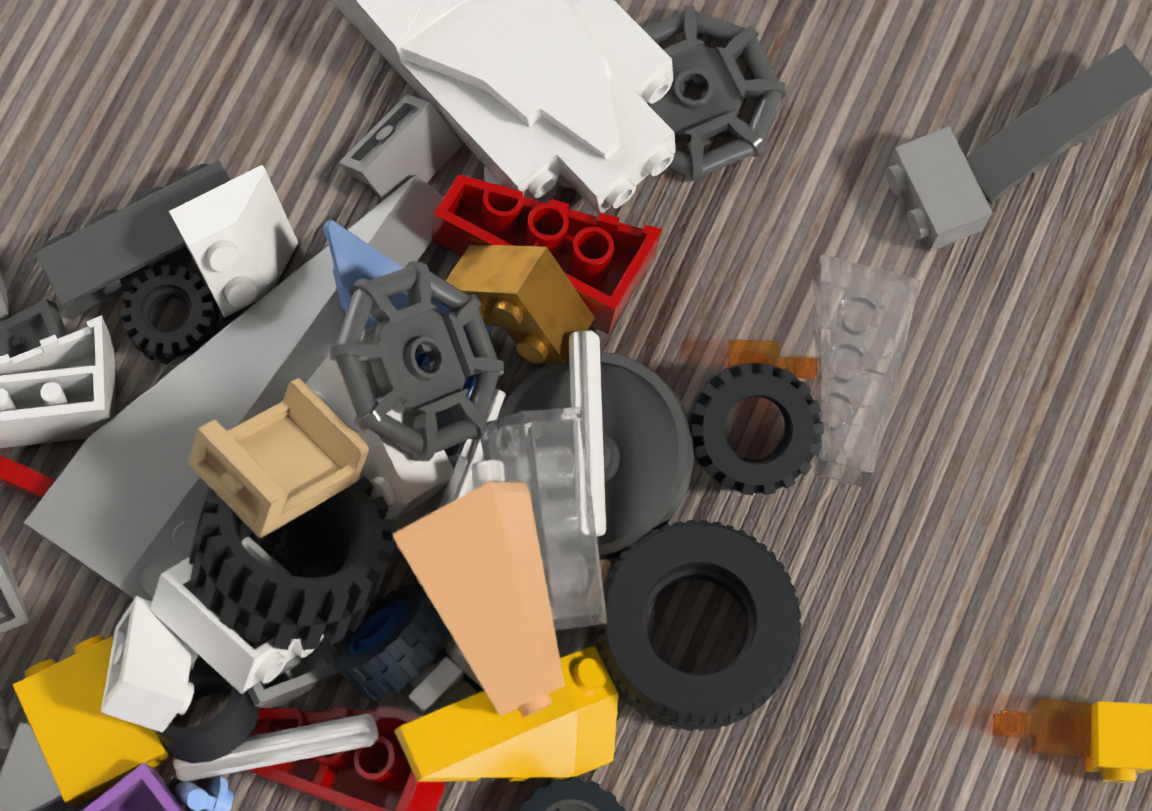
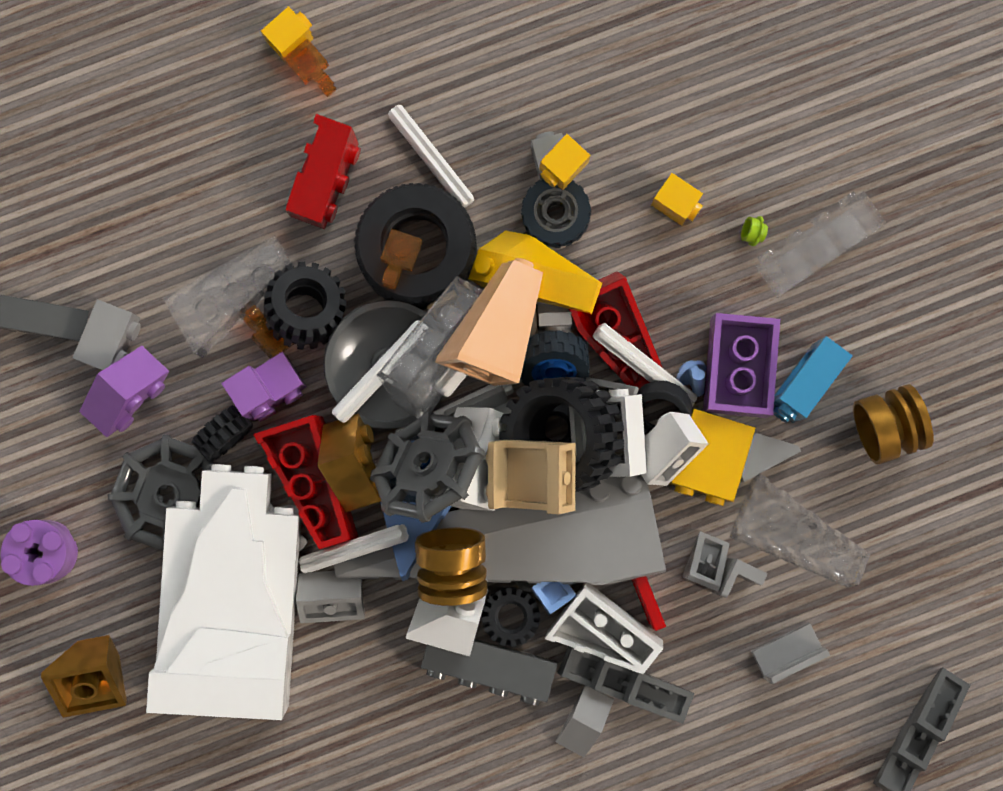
camera: 130 degrees left, 10 degrees up
(136, 375) = (553, 595): none -> light blue tile
(282, 282) = (451, 566): none -> pearl gold wheel
(418, 215) = (353, 548): none -> white axle
(698, 202) = (221, 433): none -> black tyre
(699, 582) = (400, 254): none -> clear orange plate
(707, 286) = (262, 389): none -> medium lavender brick
(794, 761) = (430, 155): none -> white axle
(860, 144) = (122, 390): none -> medium lavender brick
(895, 606) = (323, 173): none -> red wedge

